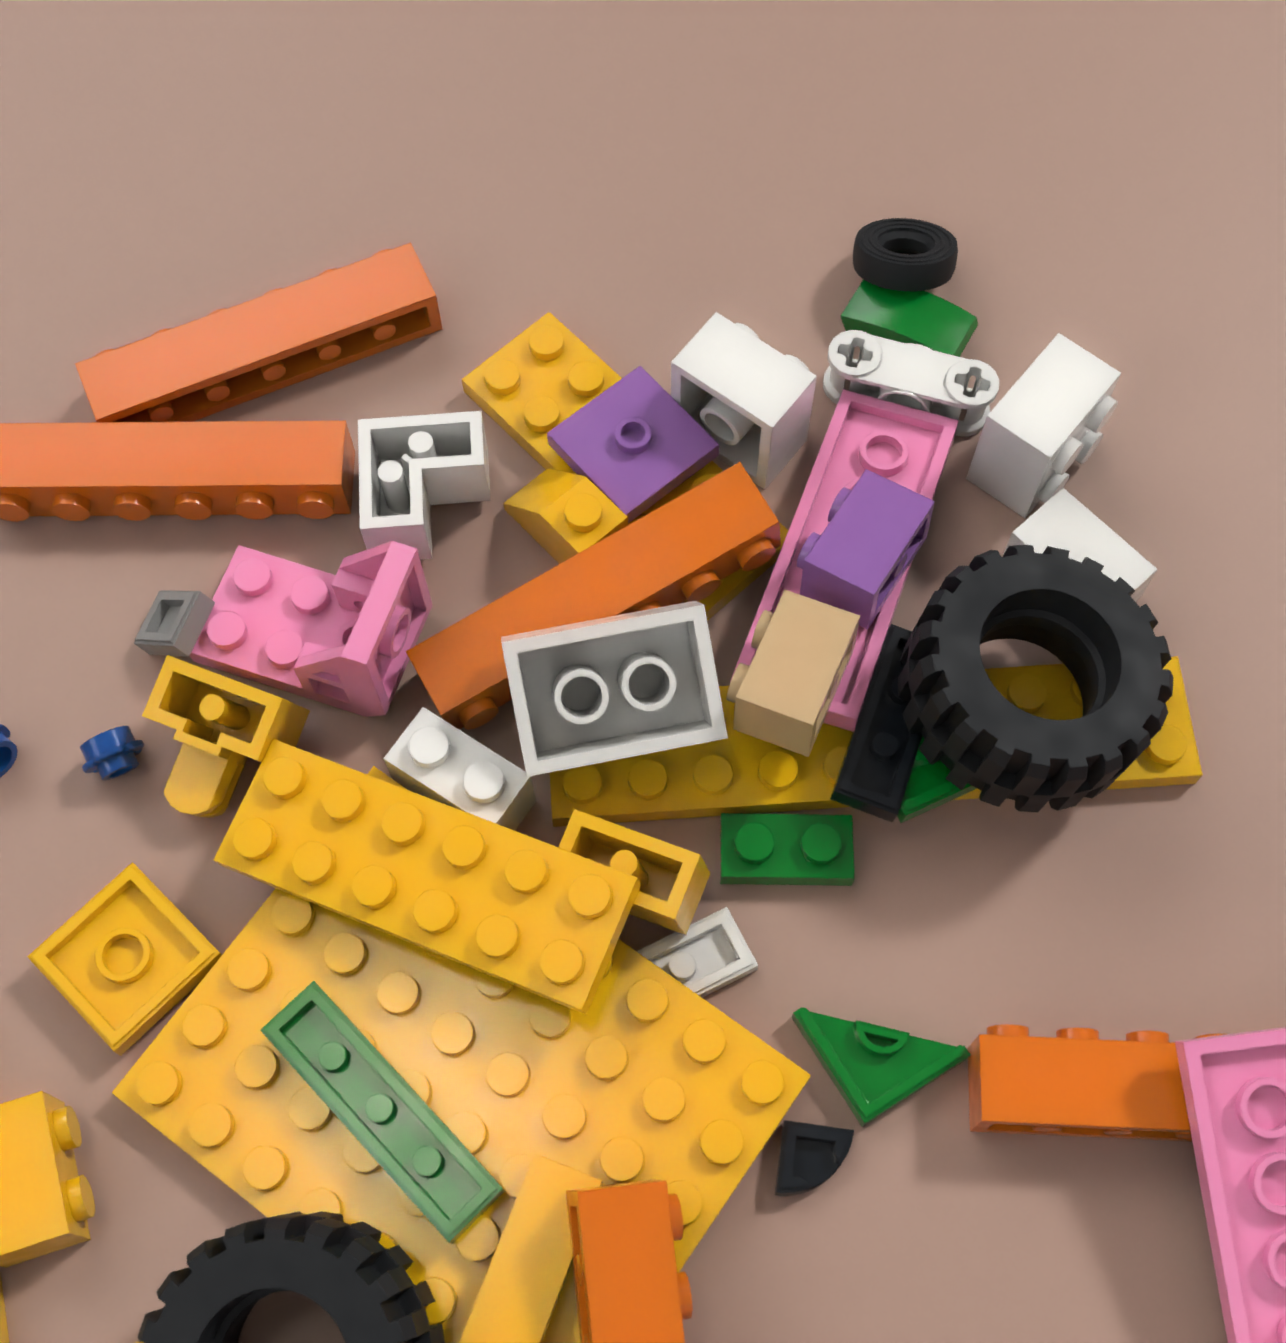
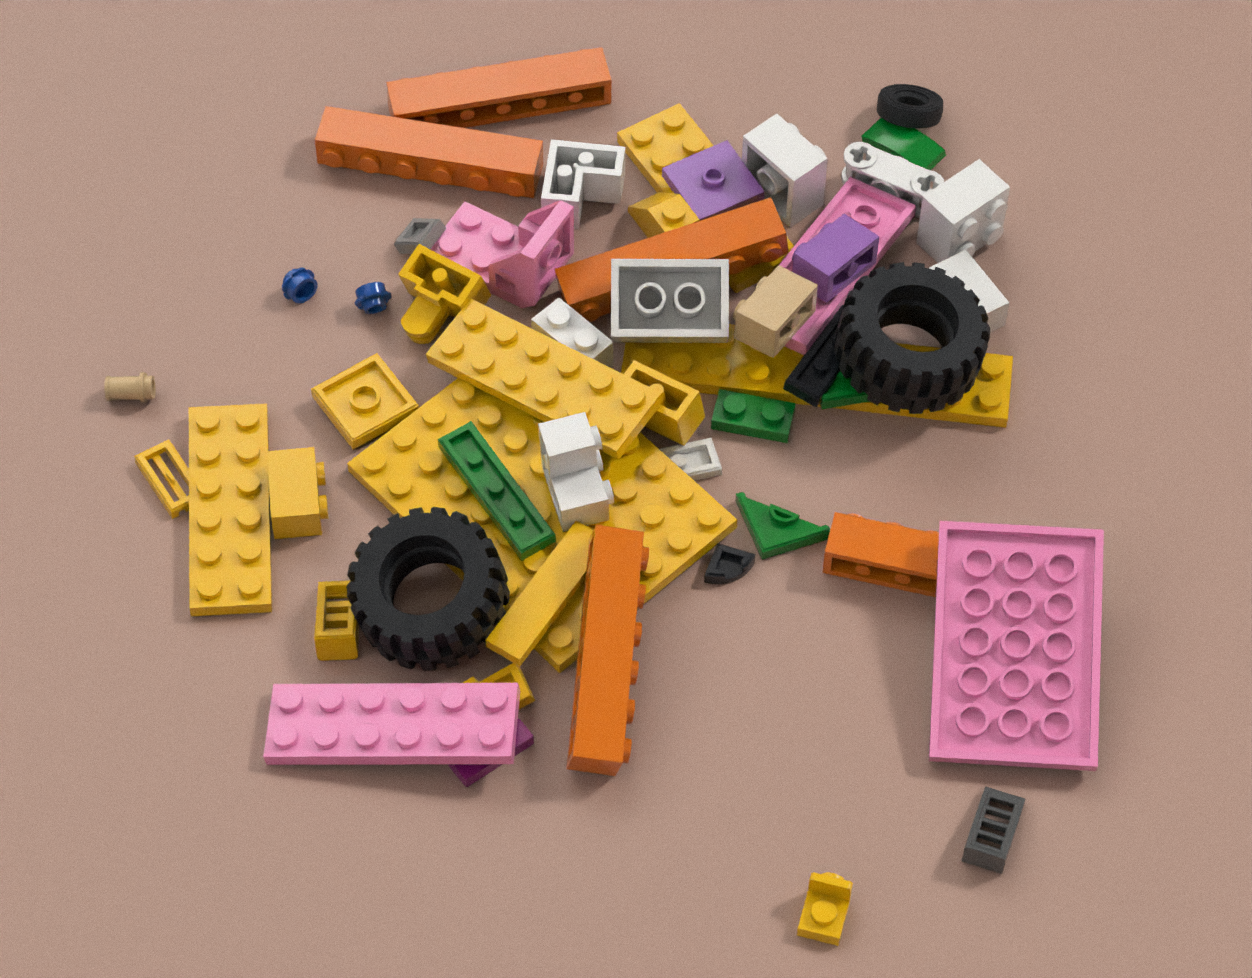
camera: 10 degrees right, 10 degrees down
(508, 1062) = (572, 470): none -> white brick

